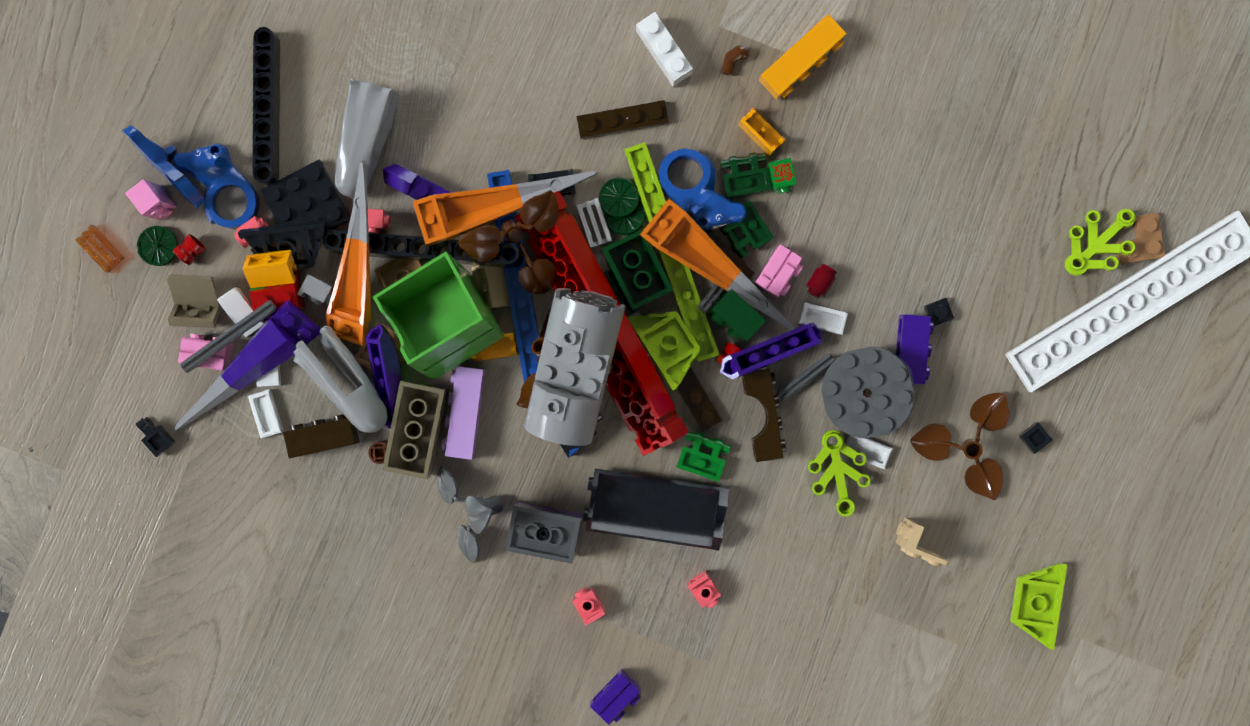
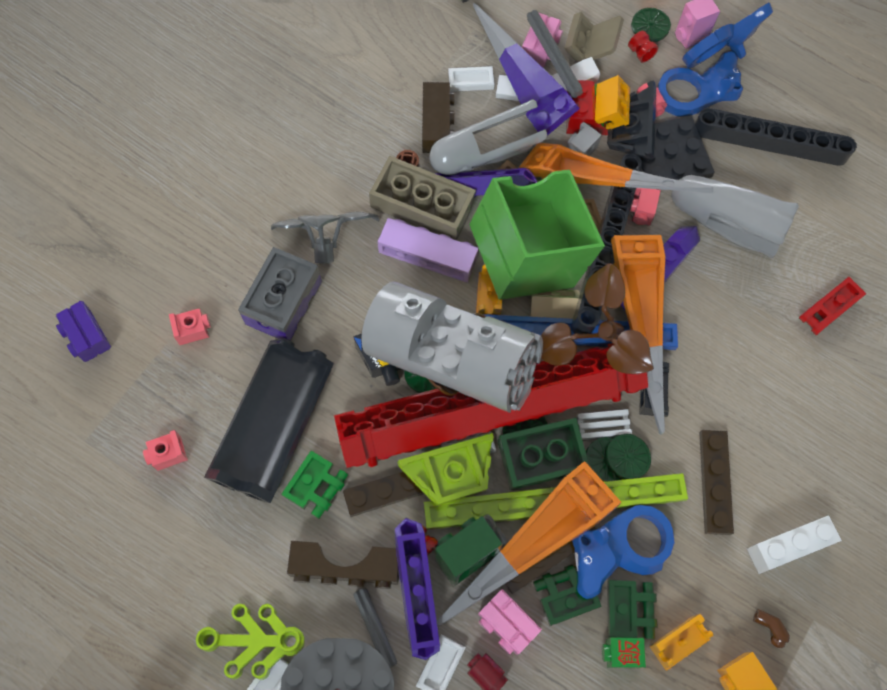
camera: 100 degrees right, 20 degrees down
(433, 34) = (833, 305): none -> red plate

